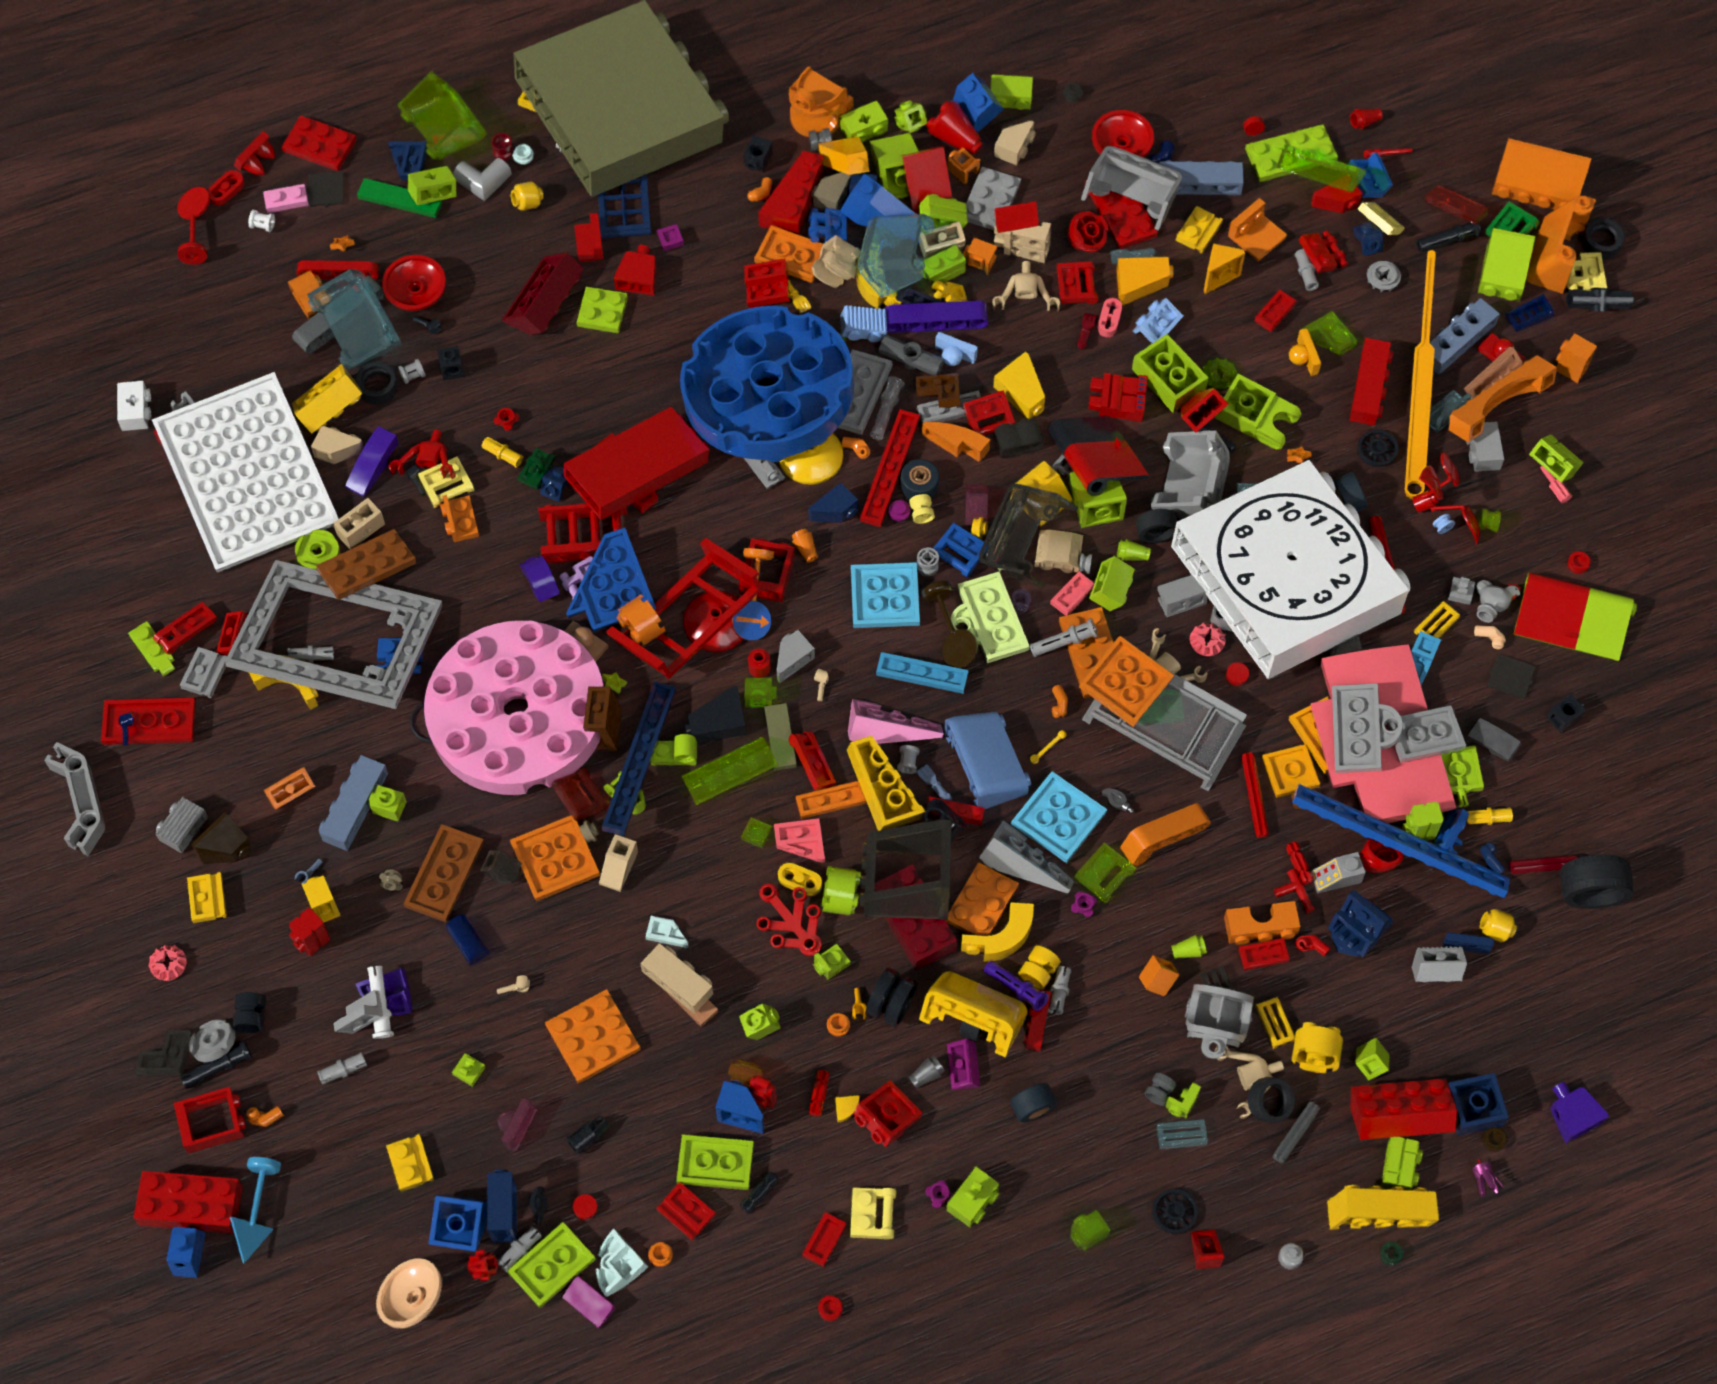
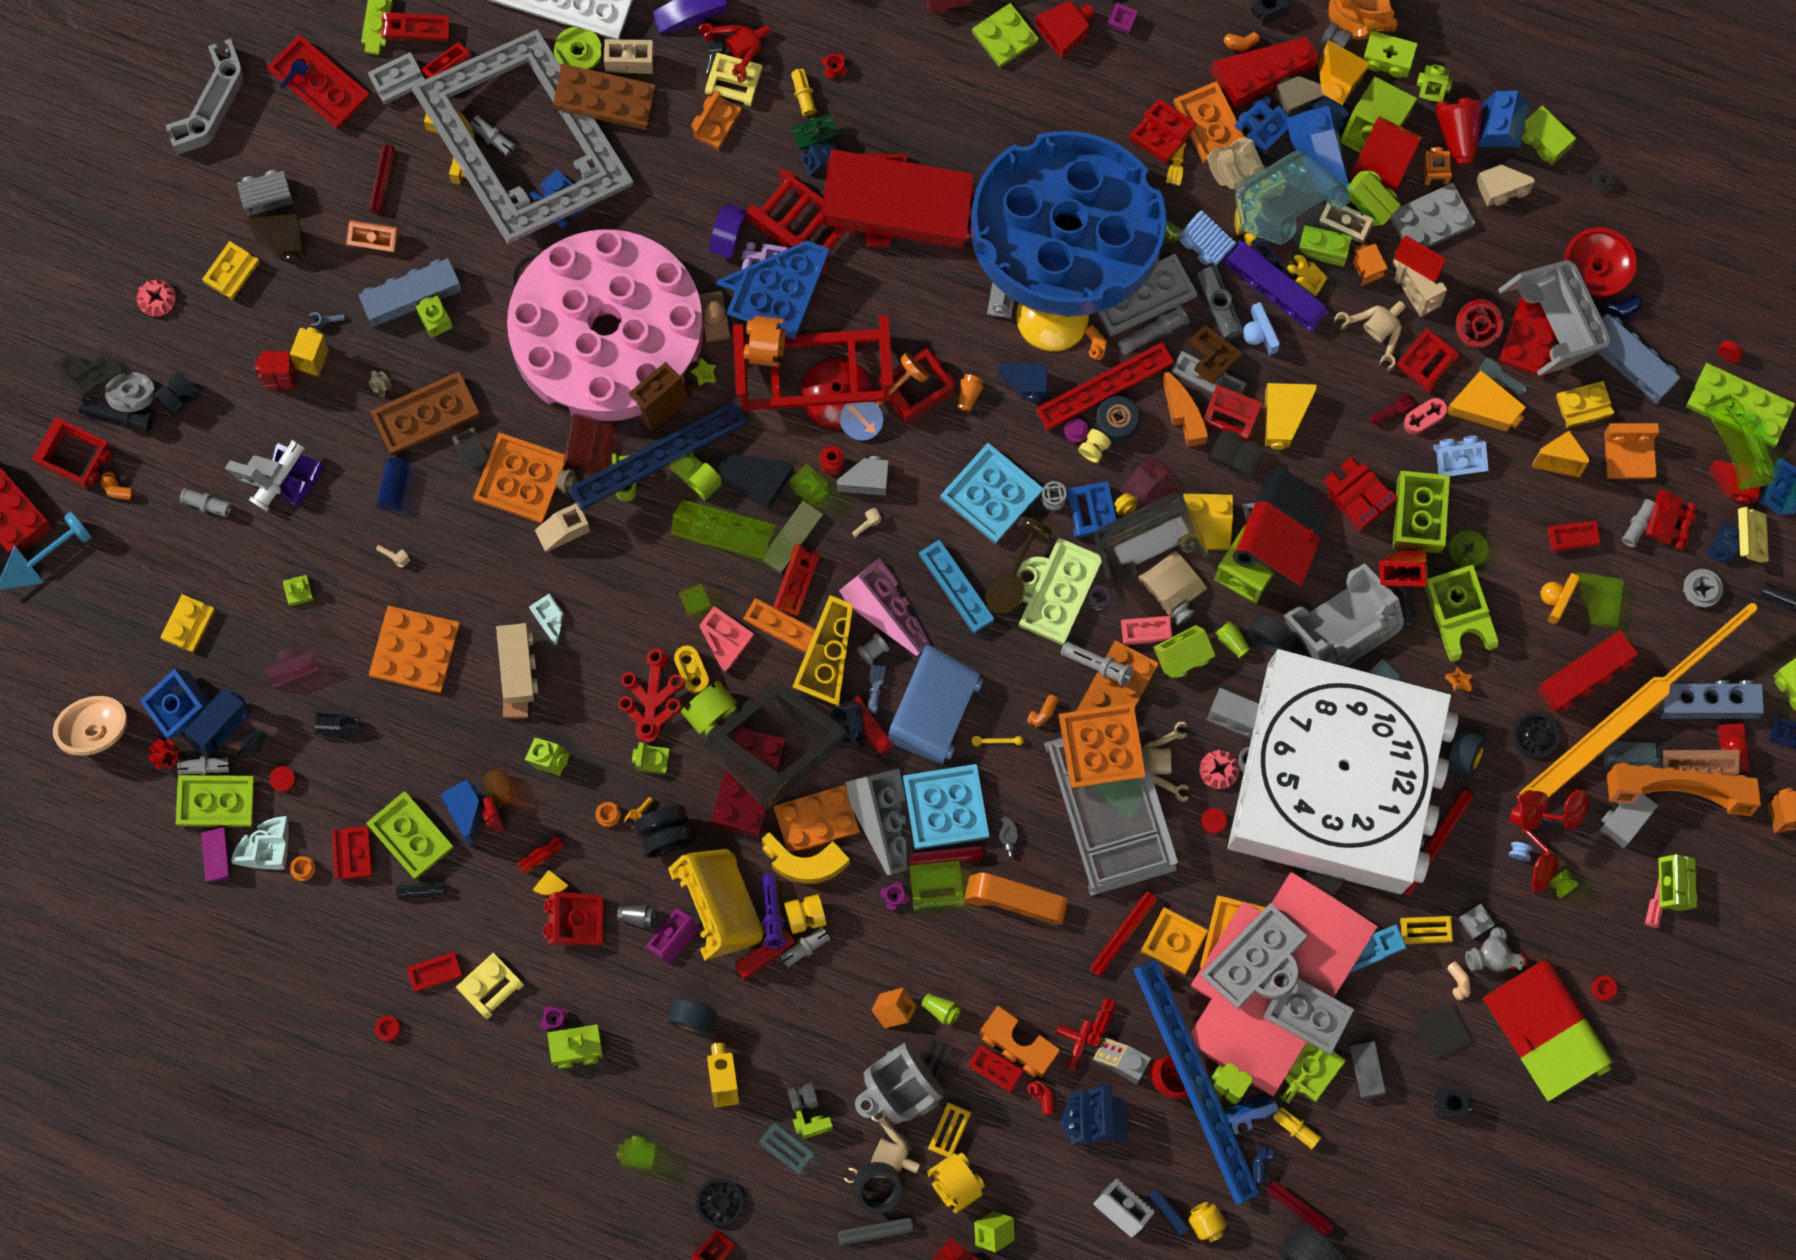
camera: 40 degrees right, 10 degrees up
(258, 746) = (382, 179): none -> dark red axle
(1094, 1123) = (722, 1076): none -> yellow torso
(1101, 837) = (962, 855): none -> dark red axle

